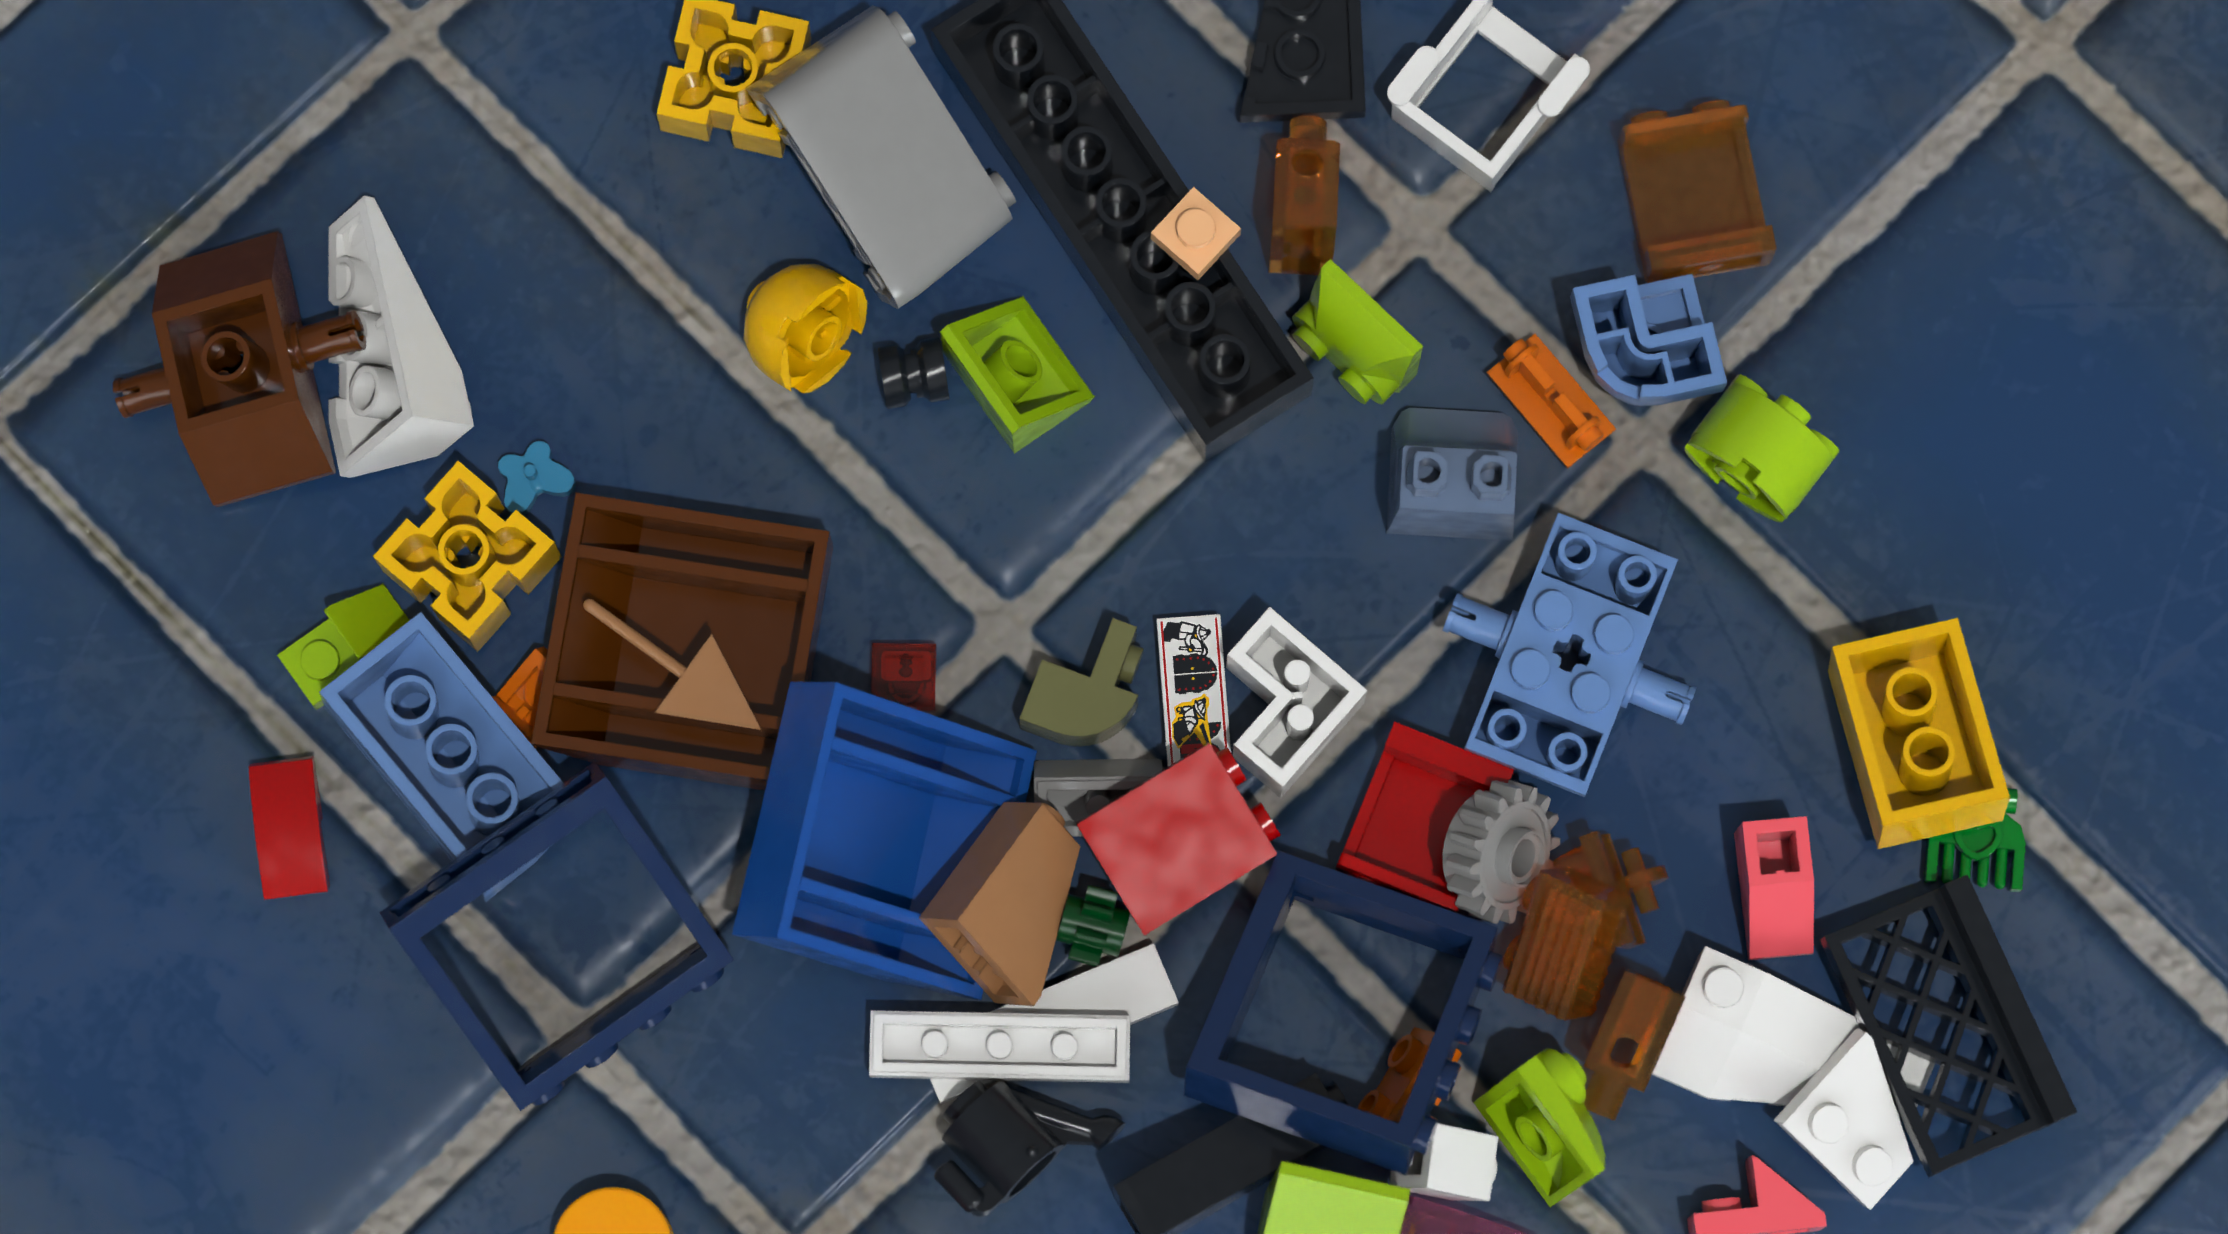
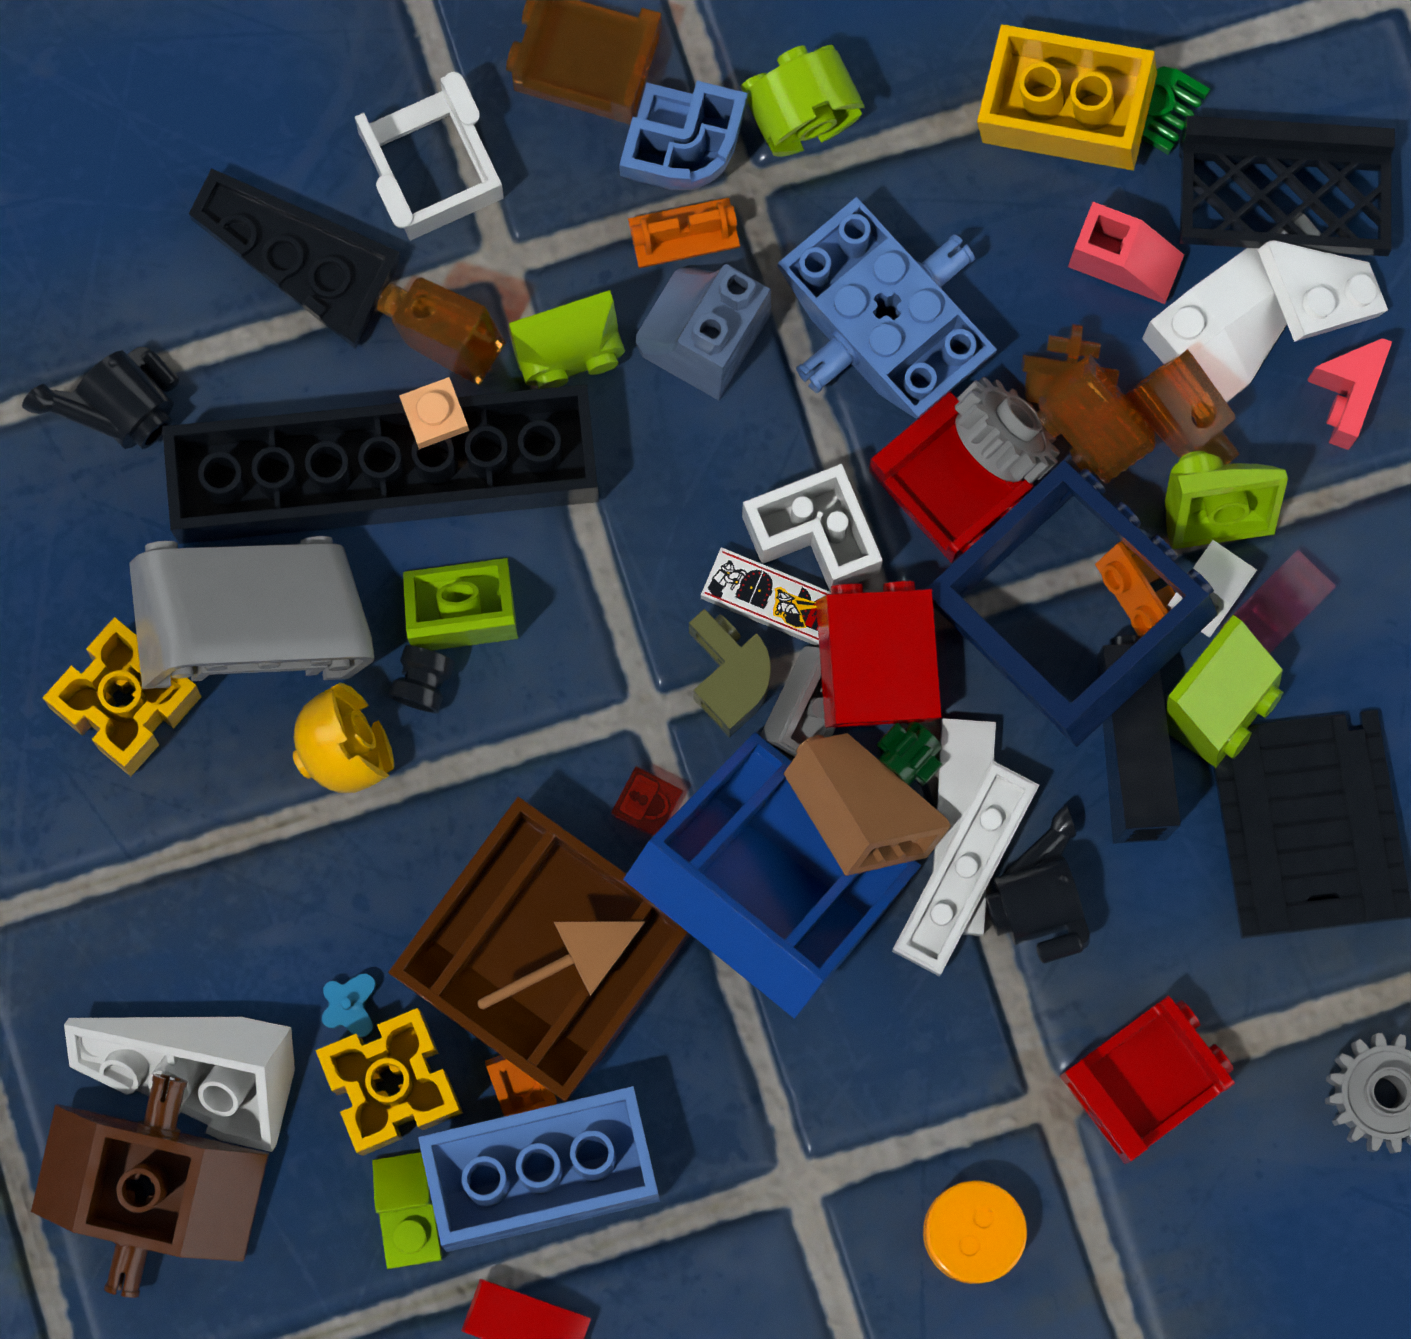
camera: 65 degrees left, 0 degrees up
(498, 858) = (647, 1168): dark blue window -> none

